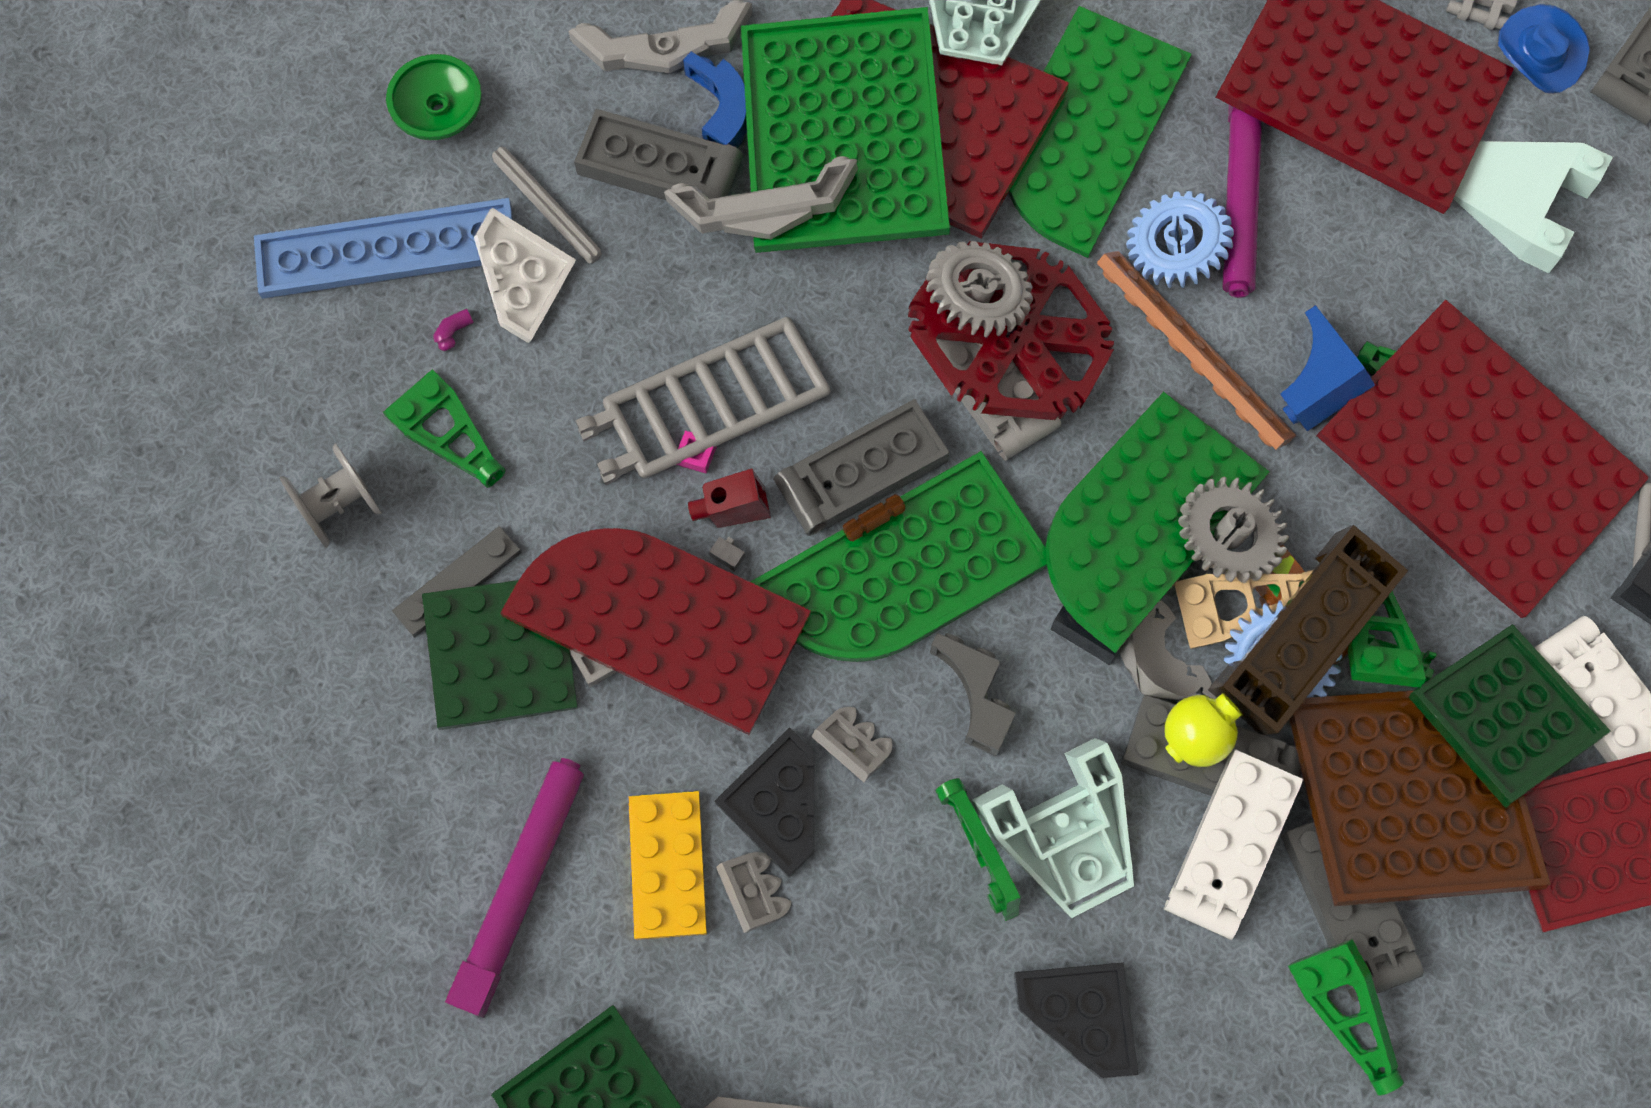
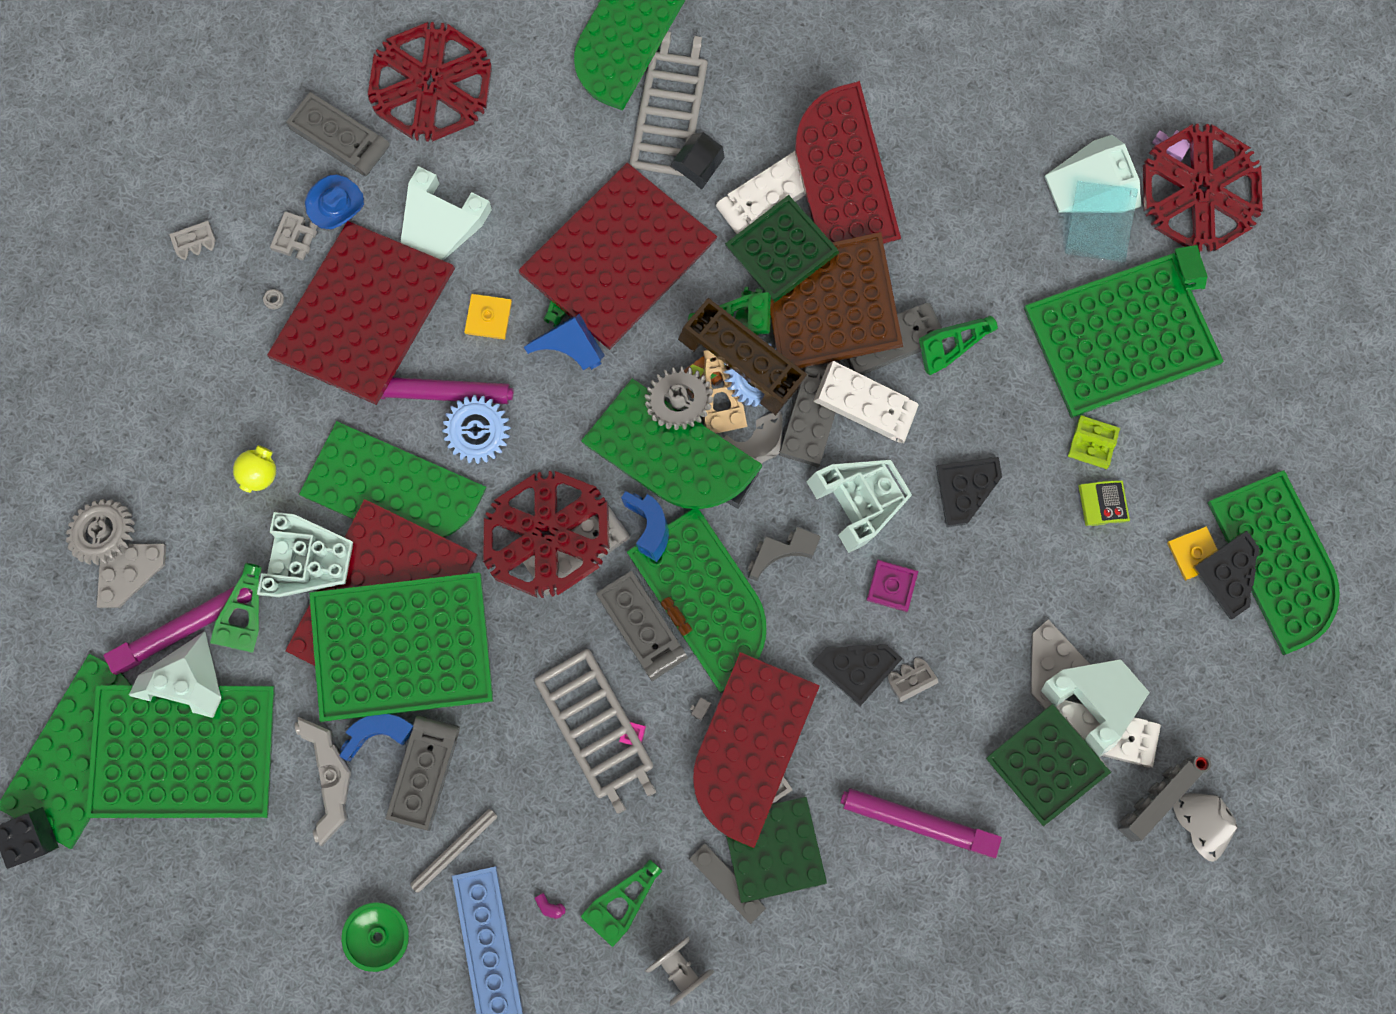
camera: 95 degrees left, 5 degrees up
(520, 272) = (510, 861): white plate -> none
(667, 865) = (899, 733): yellow plate -> none
(742, 499) = (667, 697): dark red torso -> none
(765, 211) = (470, 695): light grey helmet -> none
(853, 743) = (819, 624): light grey plate -> none
(913, 870) = (892, 586): none -> magenta plate
(971, 298) = (537, 561): light grey gear -> none
(1003, 893) = (904, 532): green plate -> none
(1020, 492) = (656, 534): none -> blue arch
(1202, 356) = (553, 419): nougat plate -> none
(1202, 730) = (807, 417): neon yellow brick -> none
(1366, 263) = (488, 316): none -> yellow plate

